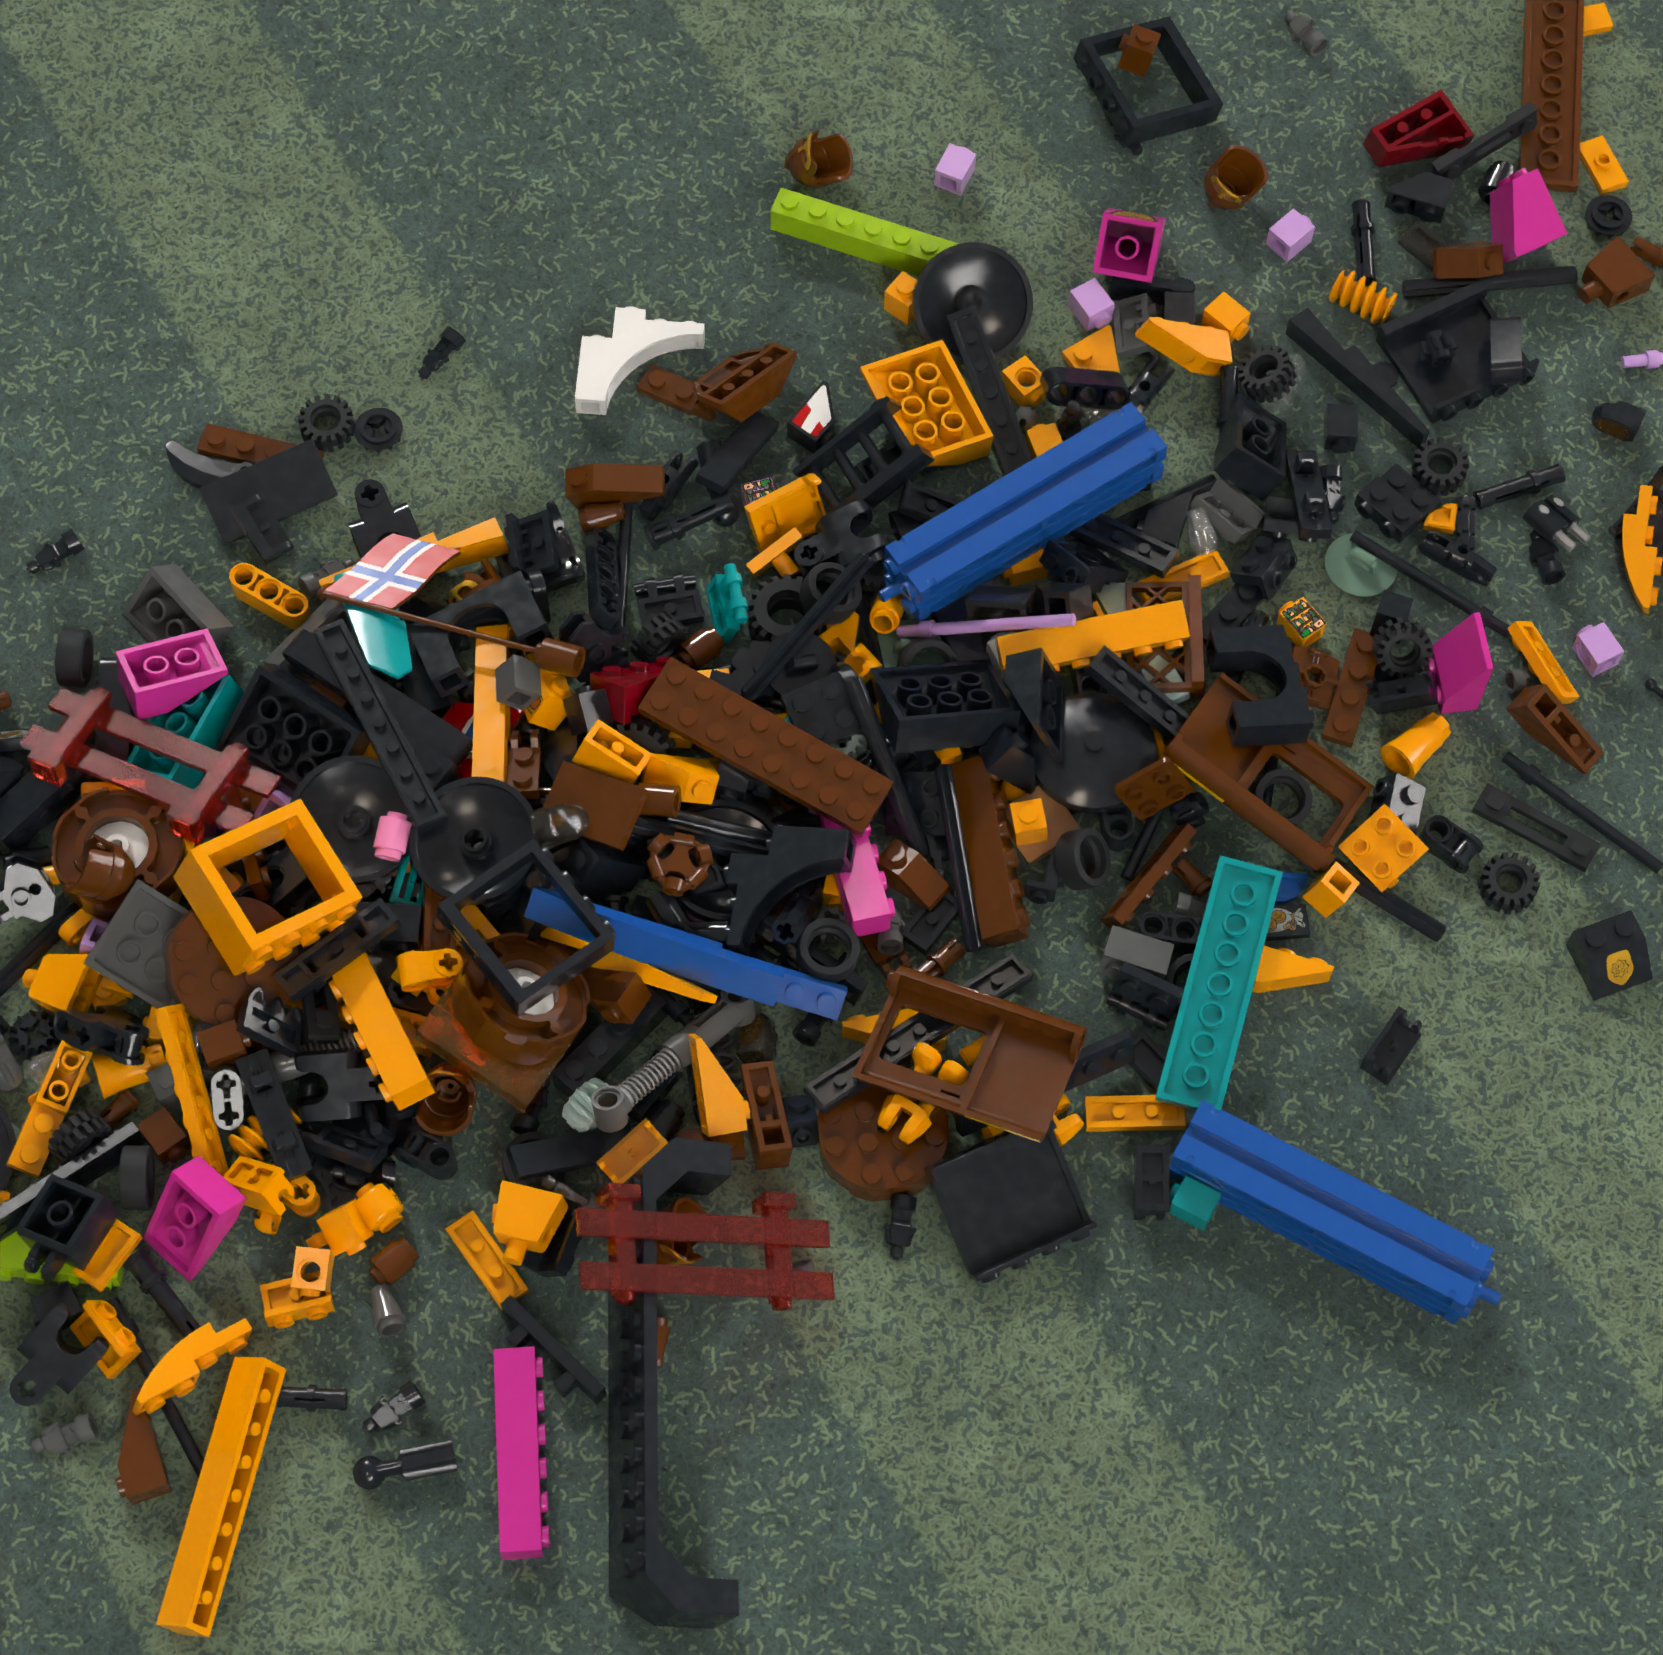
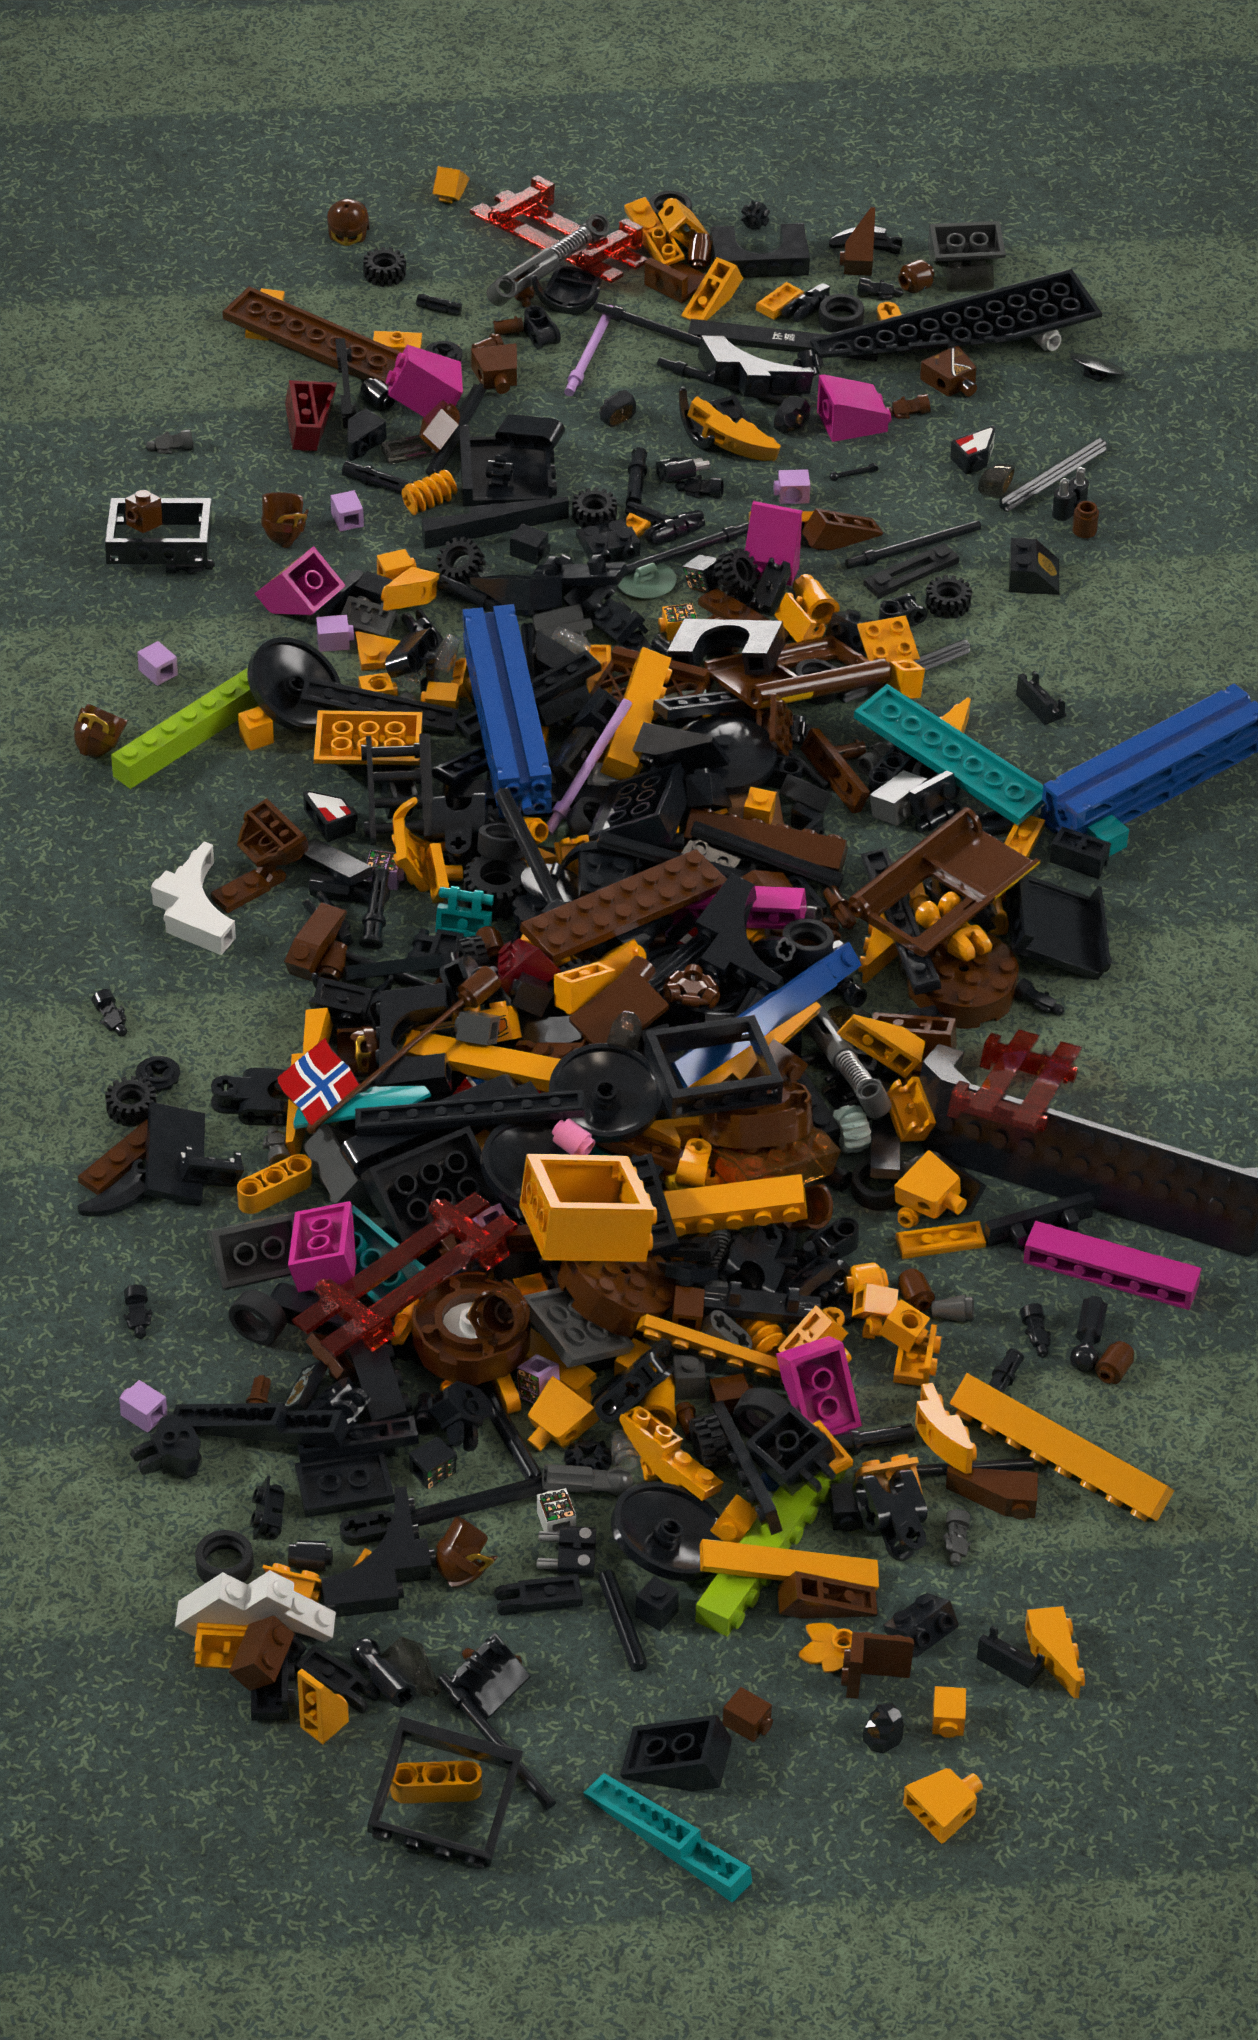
camera: 65 degrees left, 20 degrees down
(375, 1507) = (1115, 1362): none -> reddish brown brick
(1367, 743) = (796, 620): none -> light orange hinge

